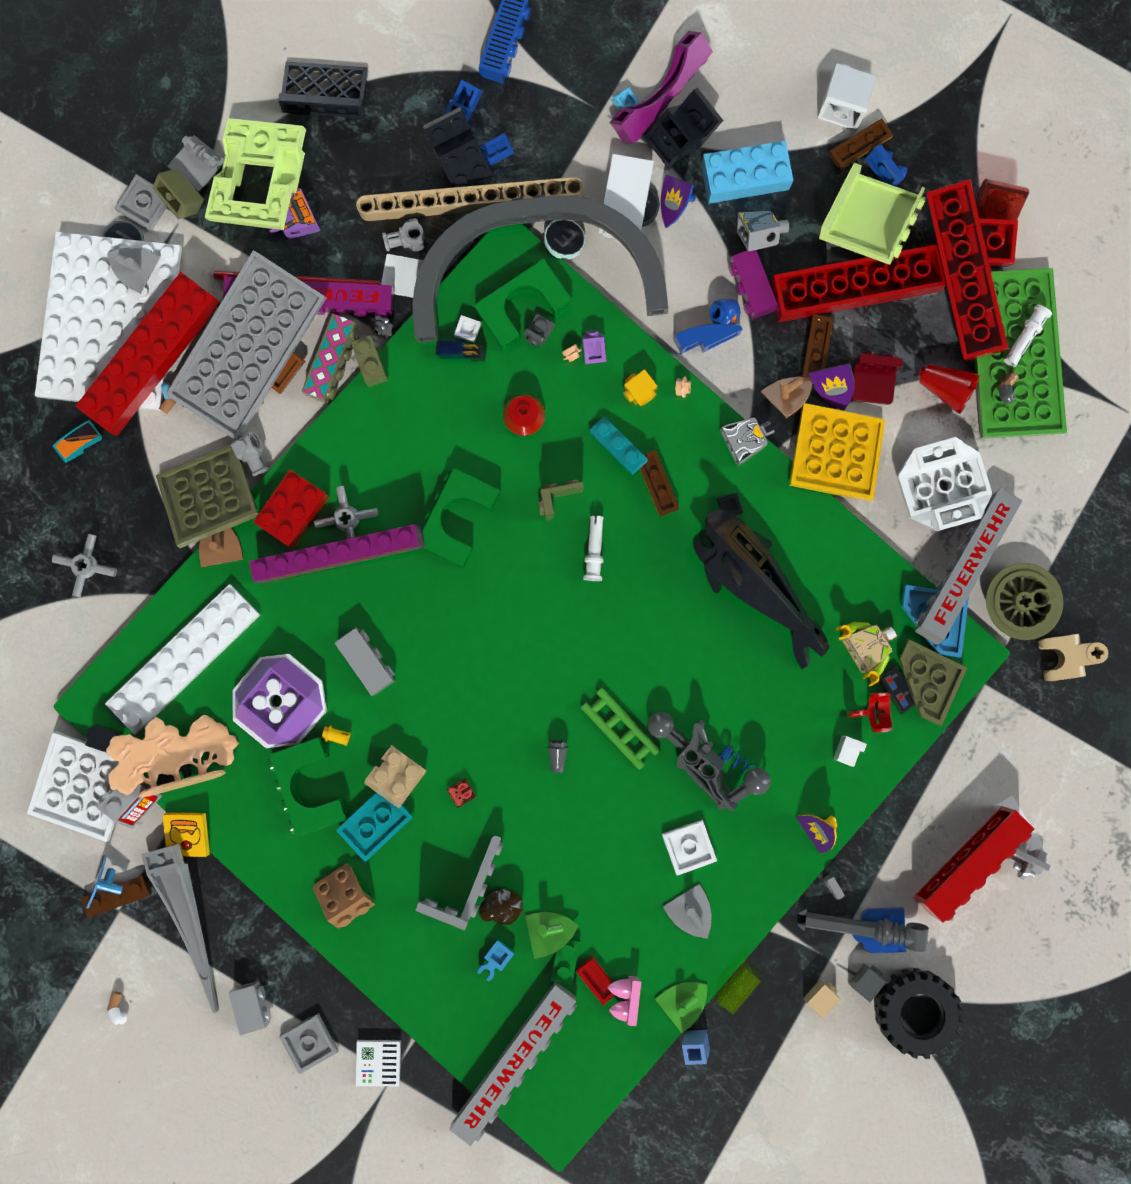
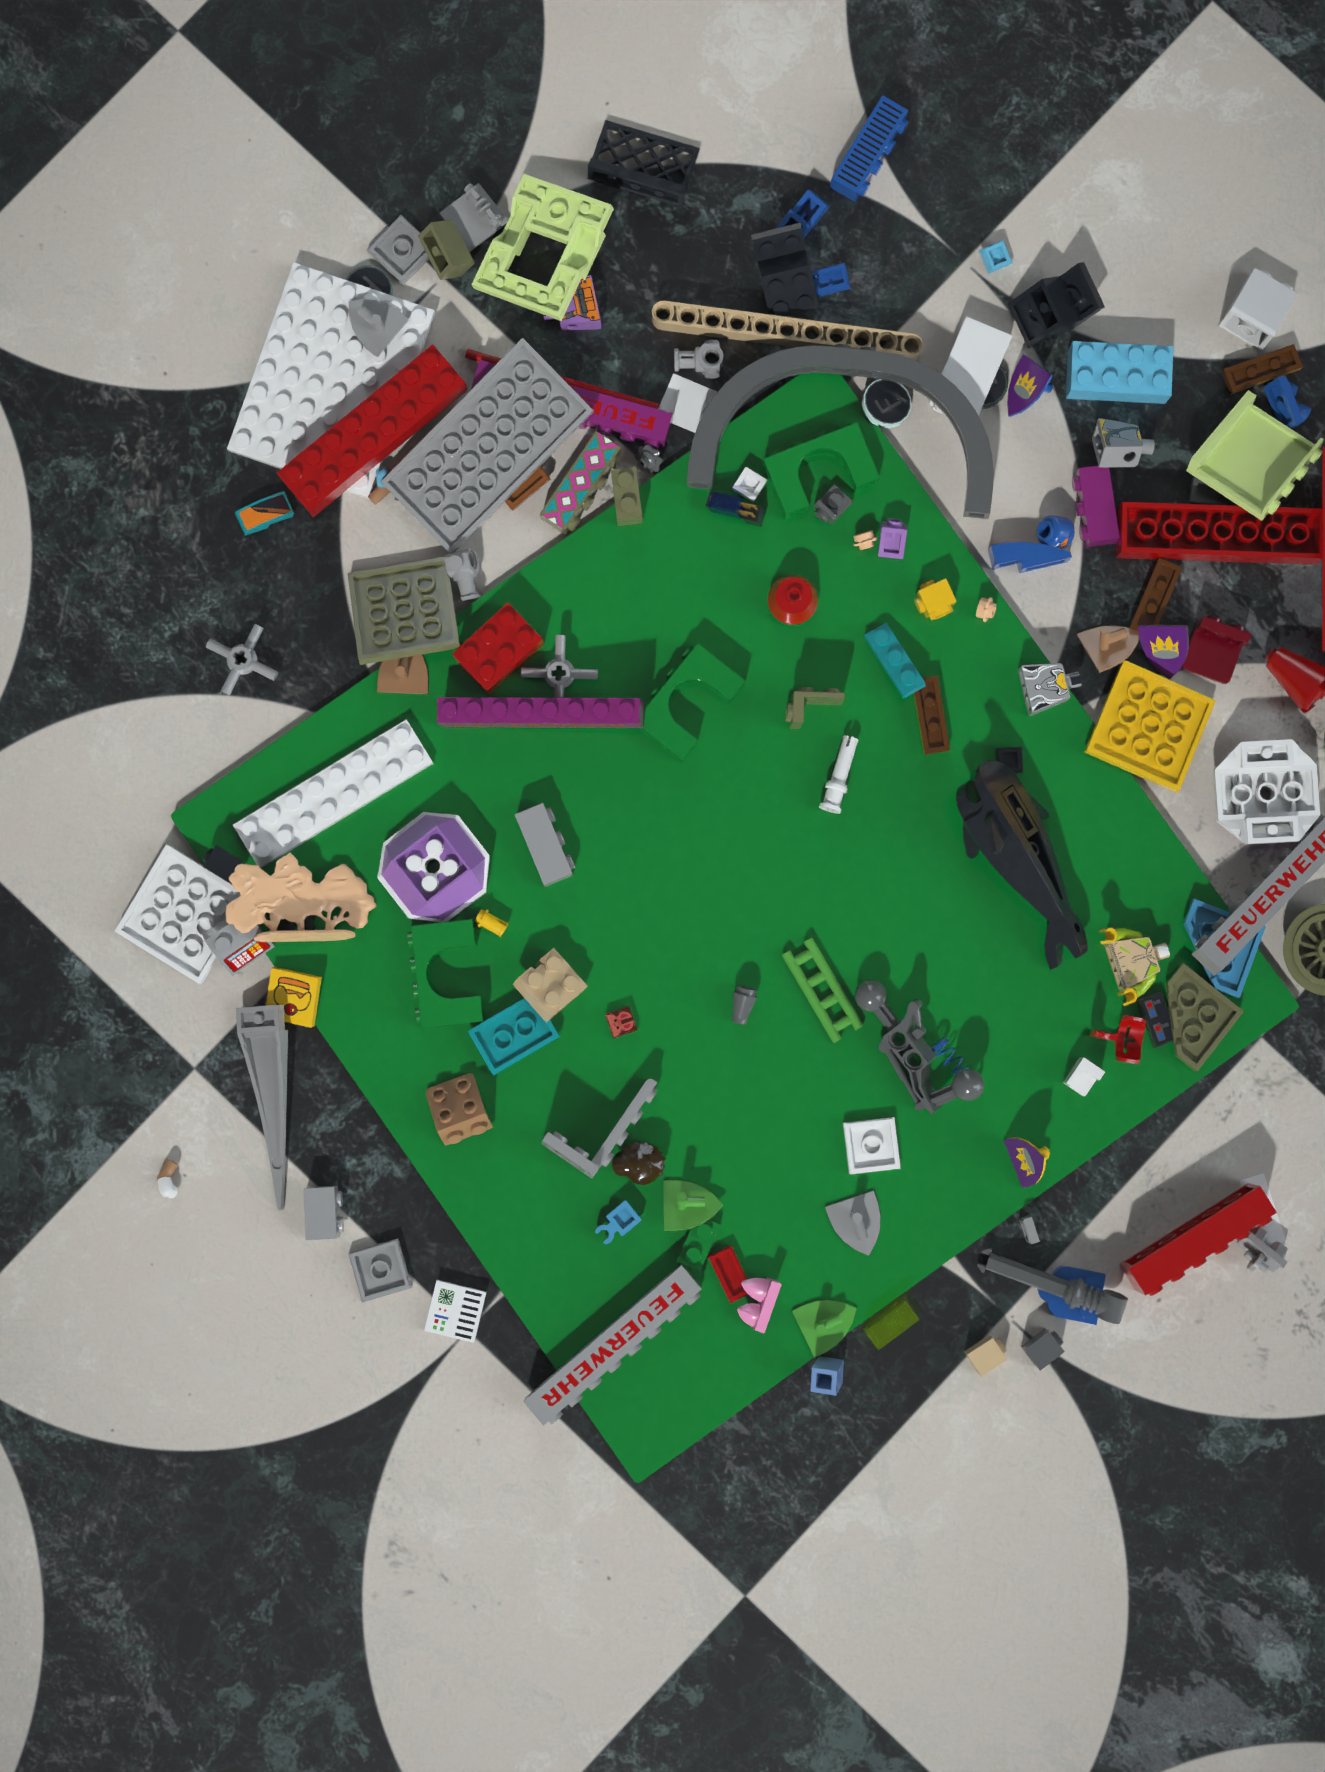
camera: 15 degrees right, 0 degrees up
(104, 901) = (195, 1050): reddish brown plate -> none
(105, 885) = (187, 1028): dark azure shield -> none
(688, 57) = (1081, 221): magenta arch -> none
(892, 1000) = (1061, 1387): black tyre -> none

